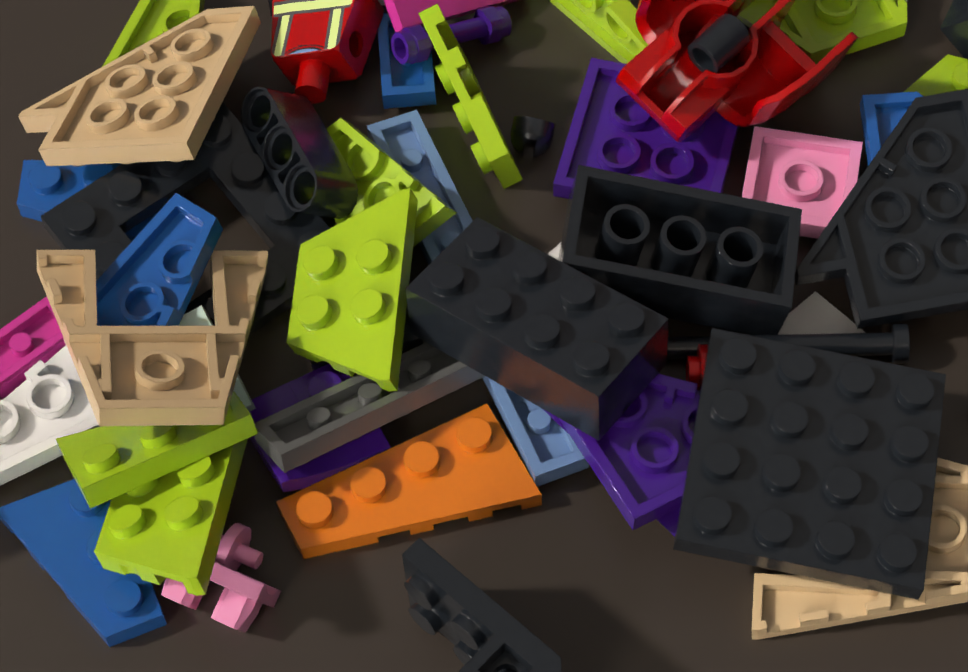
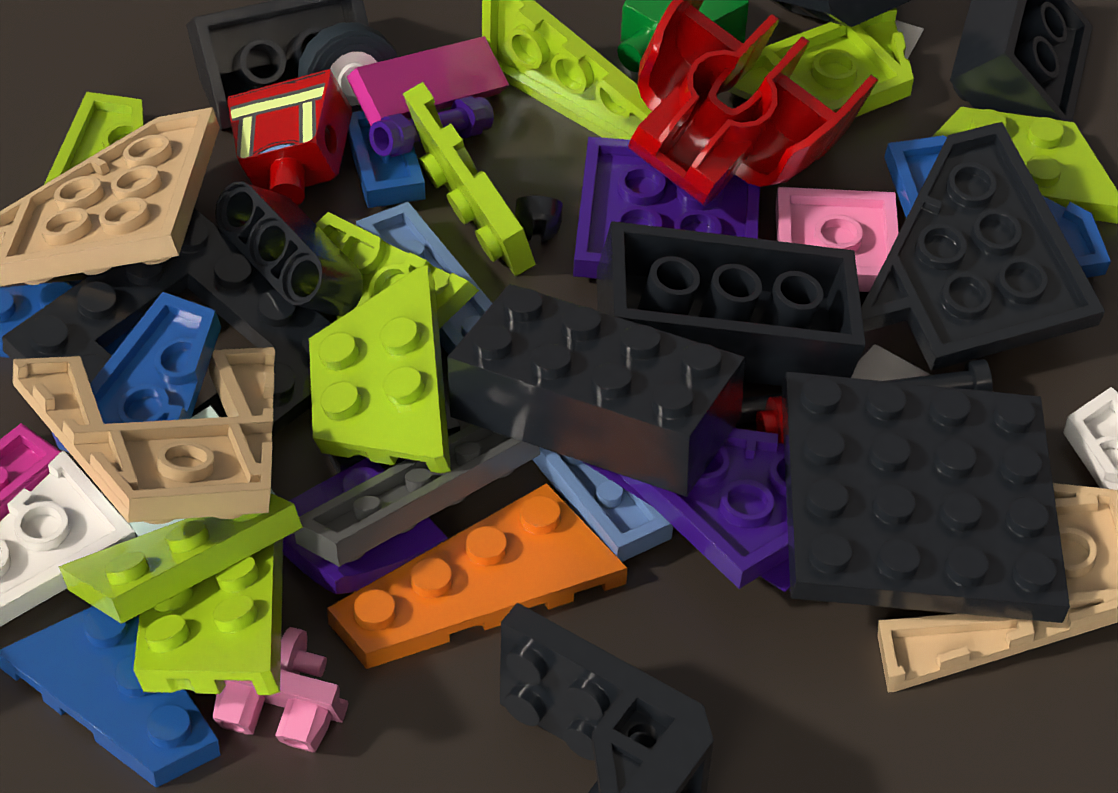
camera: 15 degrees left, 10 degrees down
(719, 43) = (737, 93): black hinge -> none

